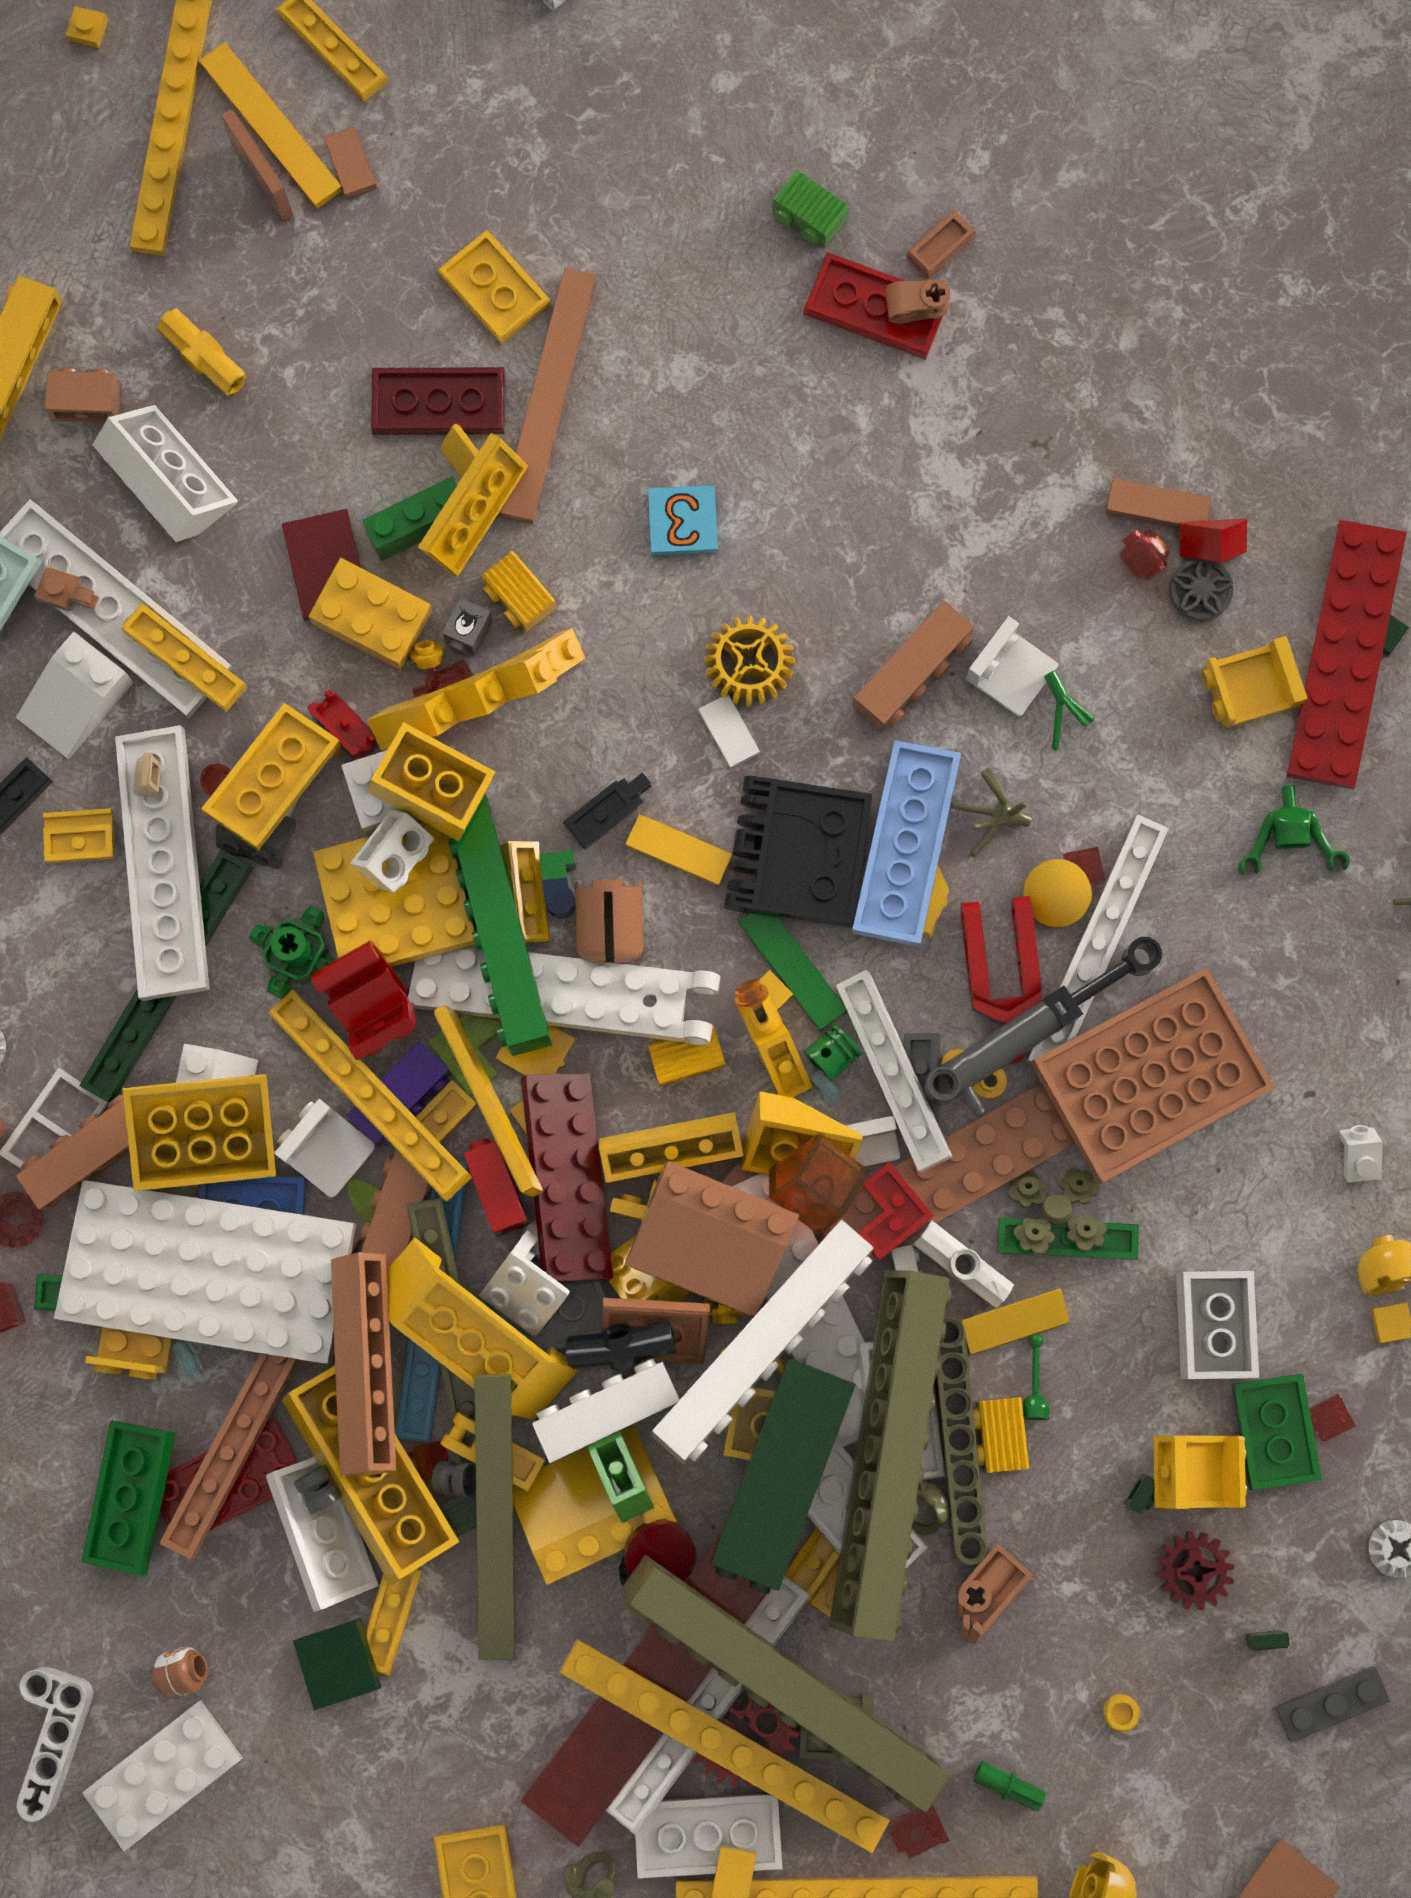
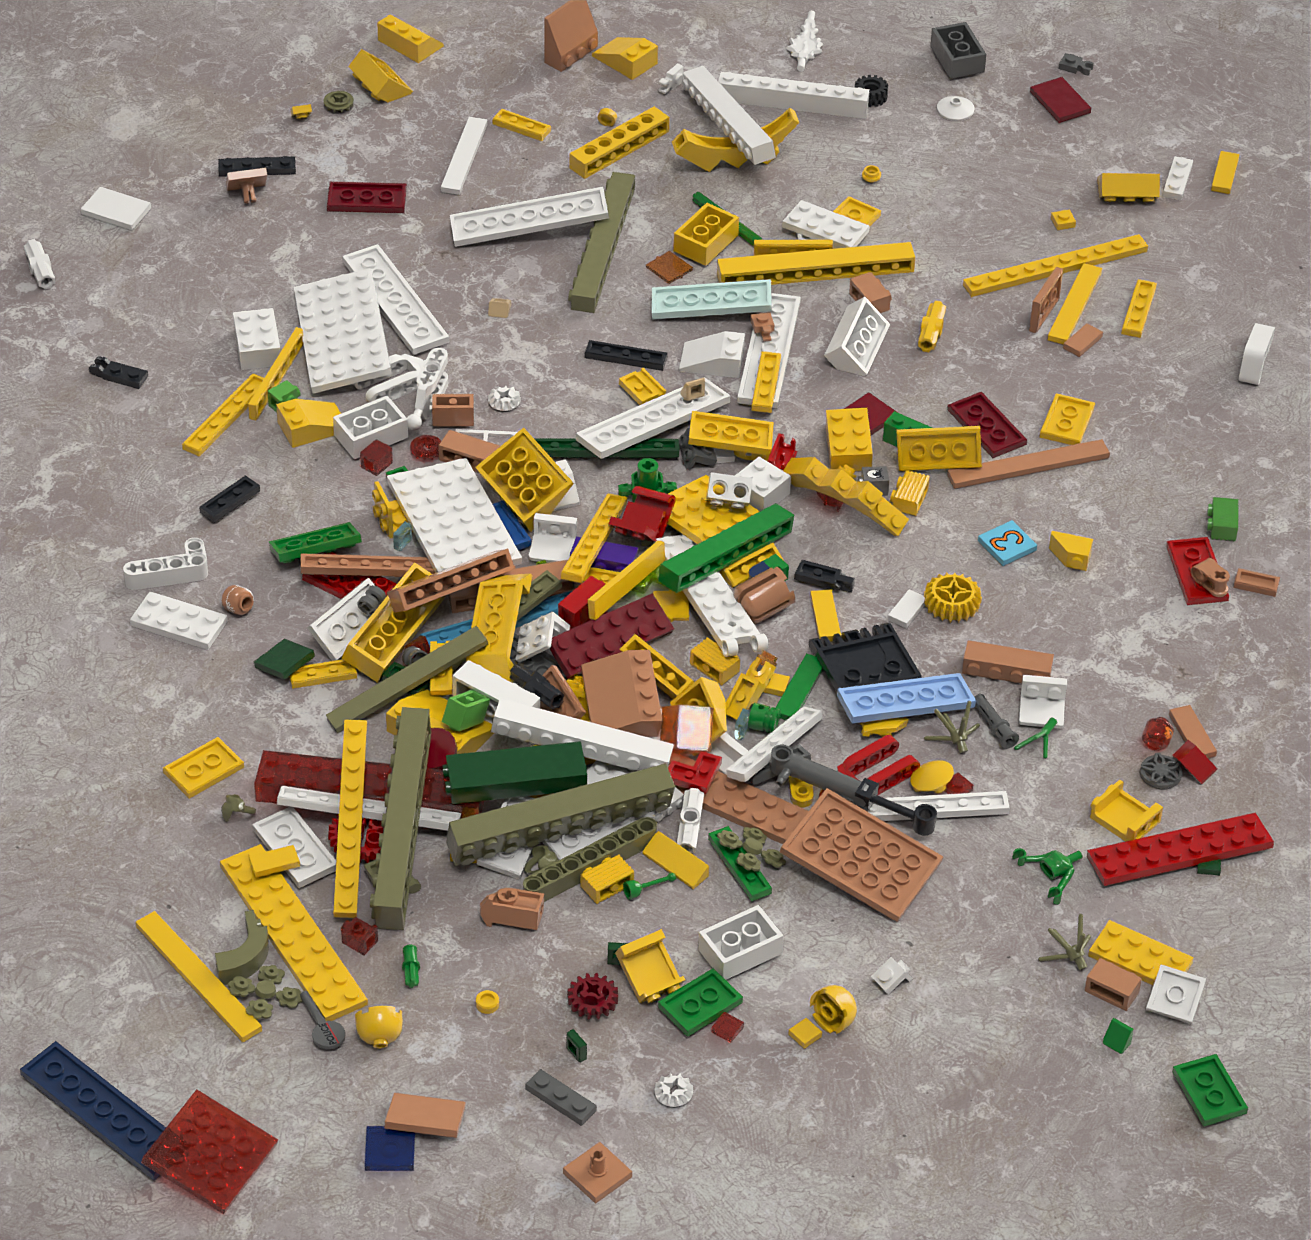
camera: 60 degrees right, 35 degrees down
(431, 781) = (776, 482): yellow brick -> none
(754, 446) = (1071, 549): none -> yellow slope
(1015, 748) = (999, 727): none -> dark grey pin

